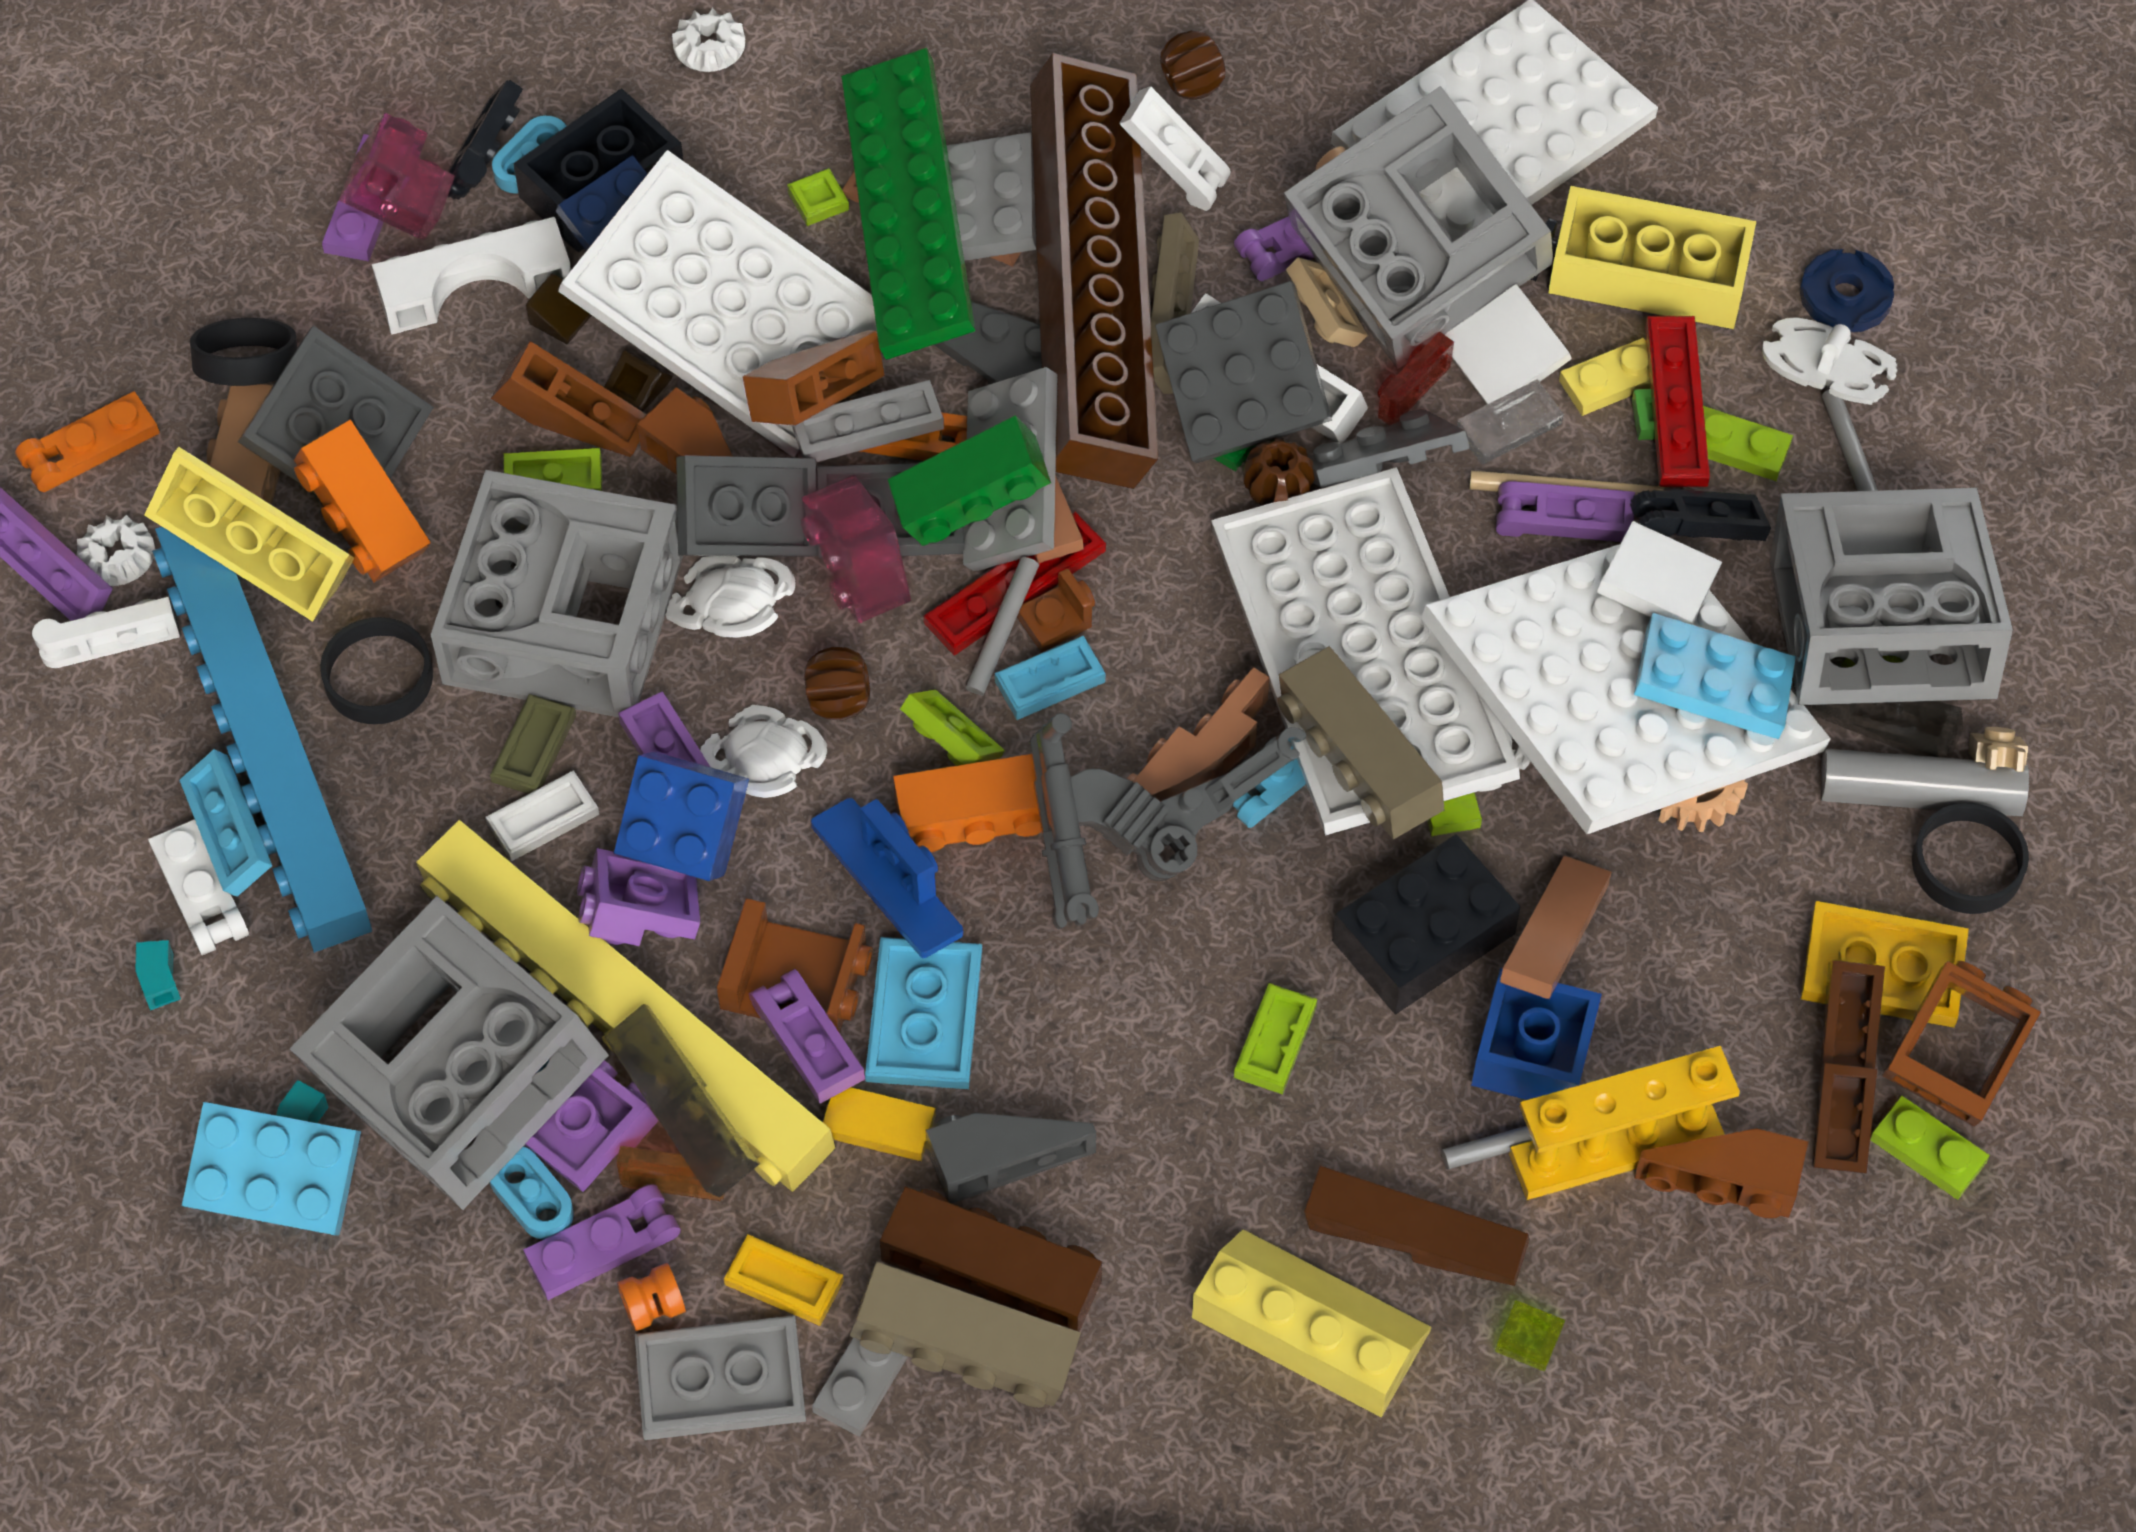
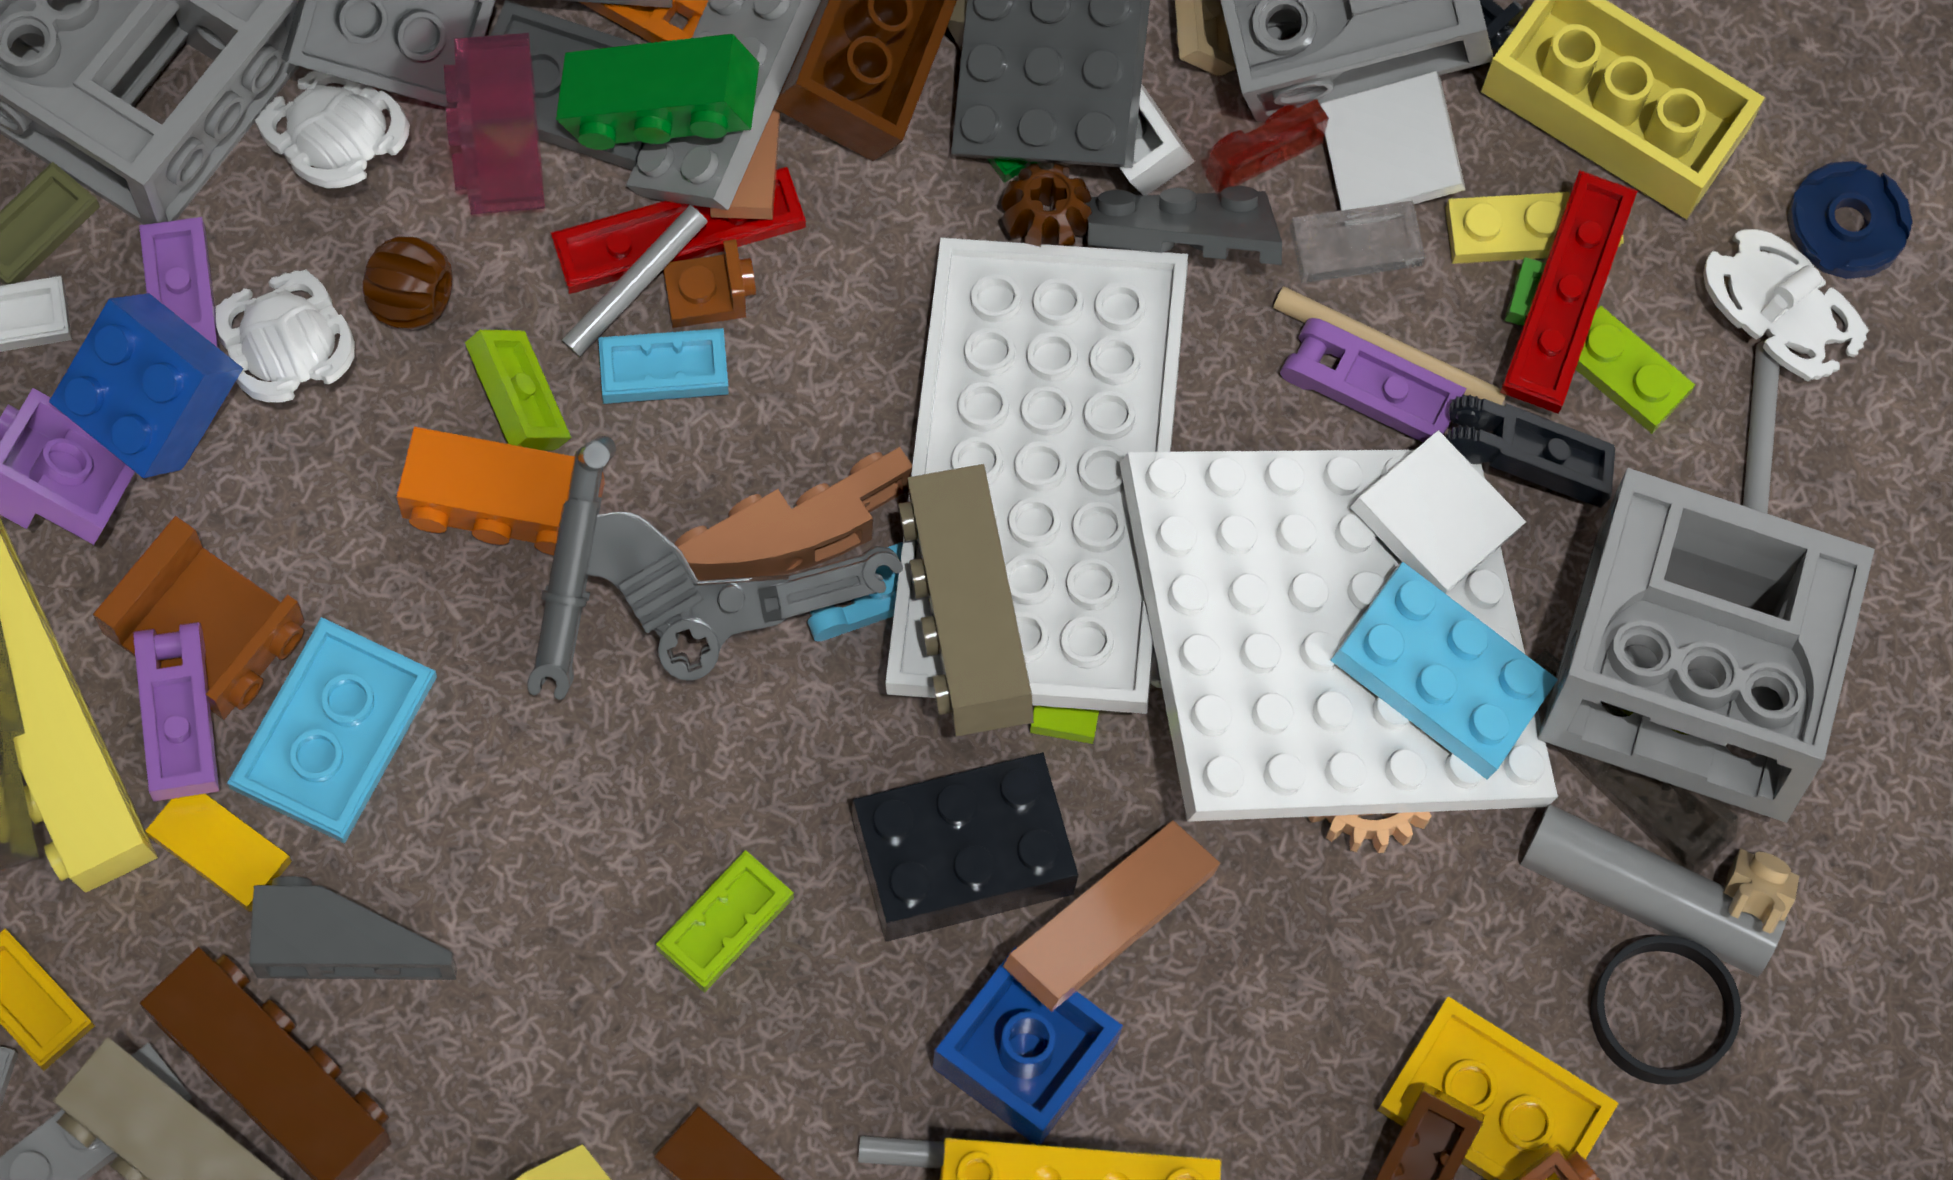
camera: 15 degrees right, 10 degrees up
(890, 870) = (361, 545): blue bracket -> none

